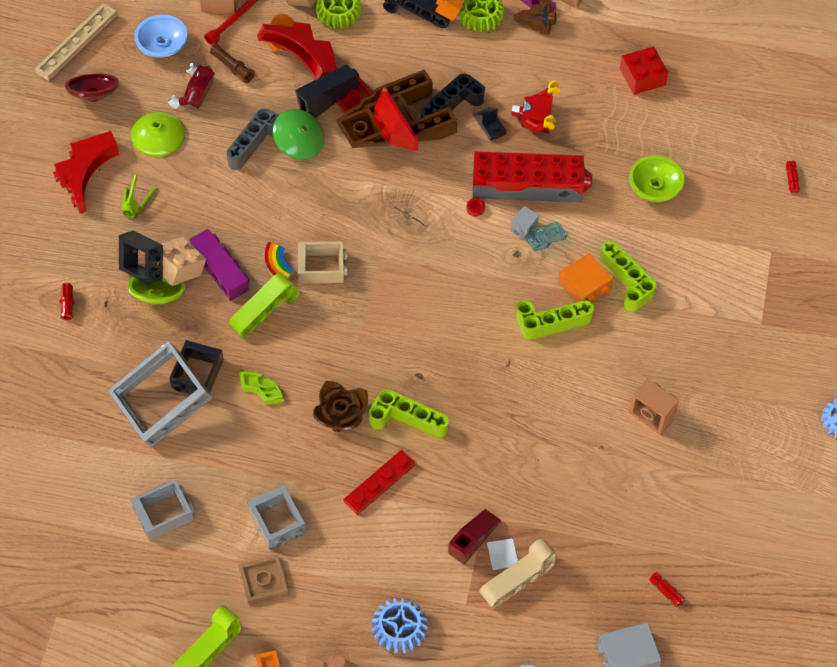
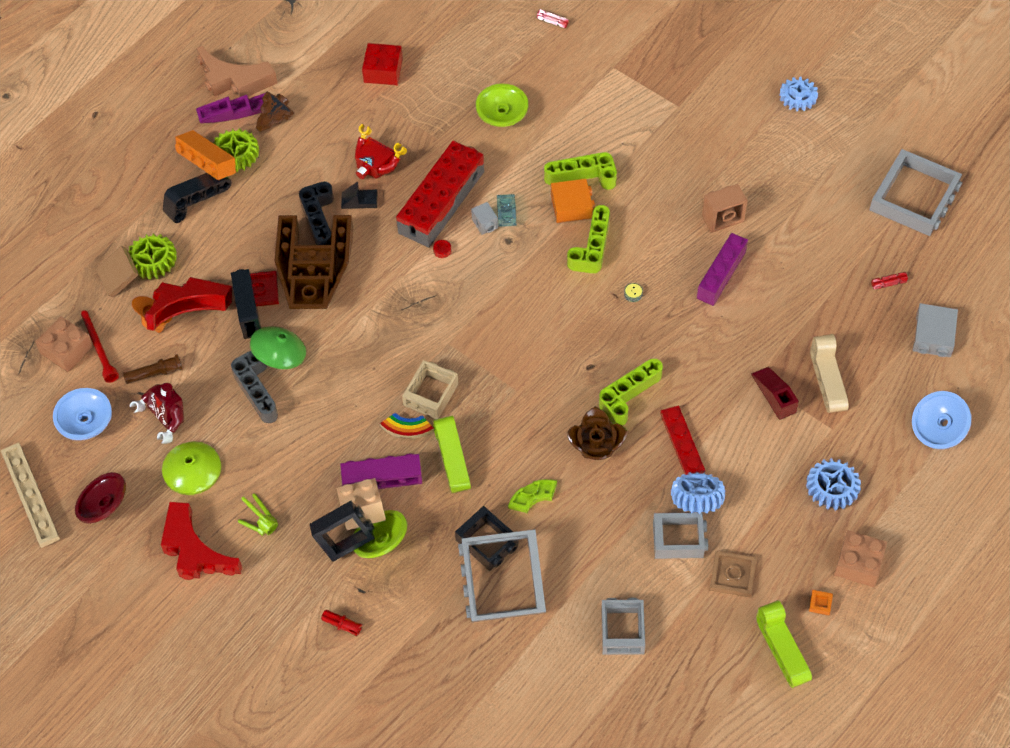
camera: 60 degrees left, 0 degrees up
(323, 511) = (698, 492): none -> light blue gear
(393, 123) = (326, 259): red wedge -> none
(502, 553) = (799, 380): white sticker -> none
(519, 375) = (633, 292): none -> light yellow tile
(586, 435) = (722, 269): none -> magenta brick
(789, 542) = (908, 217): none -> light grey window

